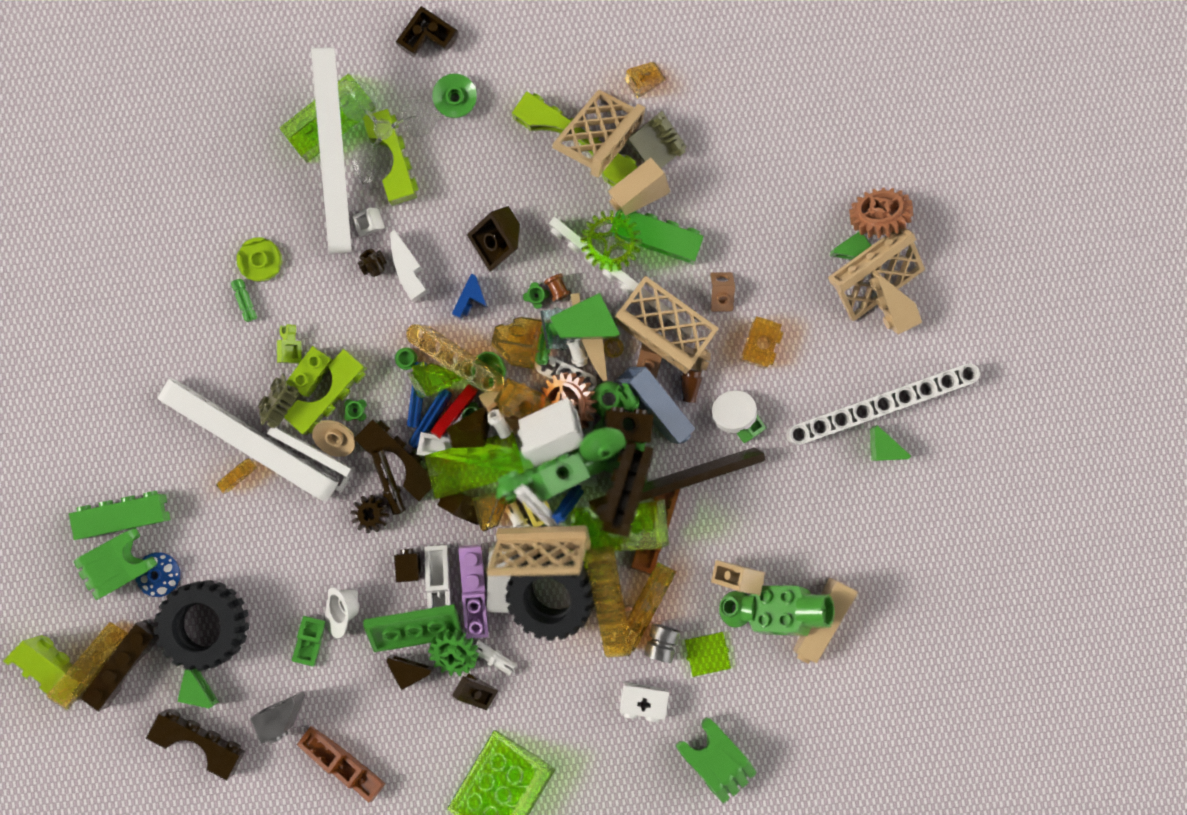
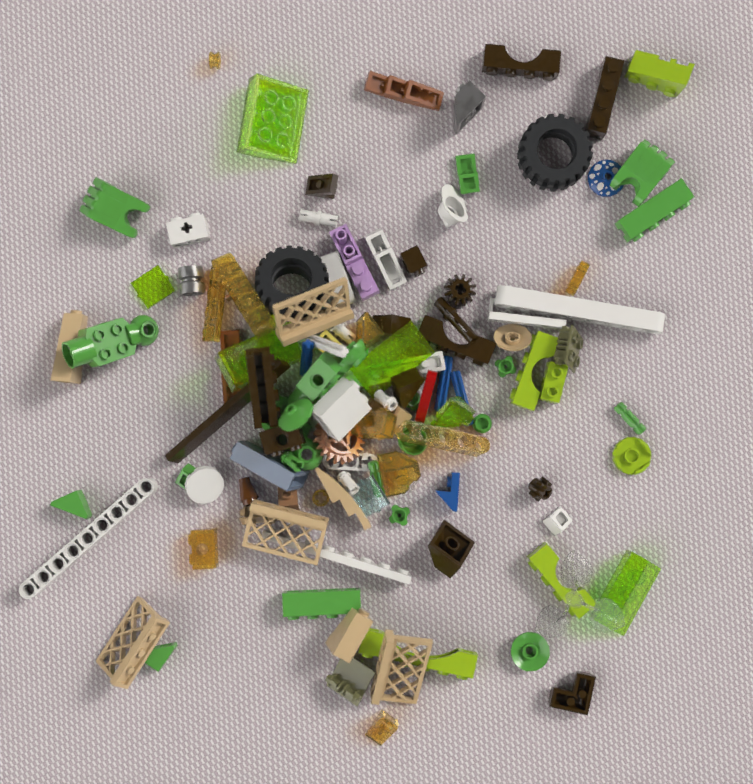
camera: 165 degrees right, 0 degrees up
(86, 667) = (628, 86): clear yellow plate -> none
(196, 691) = (537, 101): bright green slope -> none
(288, 349) = (578, 394): lime plate -> none
(331, 150) = (609, 566): white beam -> none
(407, 268) = (510, 495): white slope -> none
(407, 671) = (380, 181): dark brown slope -> none
(411, 627) = (389, 215): bright green tile -> none
(453, 652) = (350, 209): bright green gear -> none
(557, 287) = (384, 528): dark orange bush -> none
(585, 321) = (350, 508): bright green slope -> none
(620, 243) = (346, 582): clear neon green gear -> none
(722, 292) = (250, 577): medium nougat bracket -> none
(738, 577) = (150, 354): tan brick -> none
(881, 212) = (148, 697): nougat gear -> none
(898, 309) = (104, 619): tan slope -> none

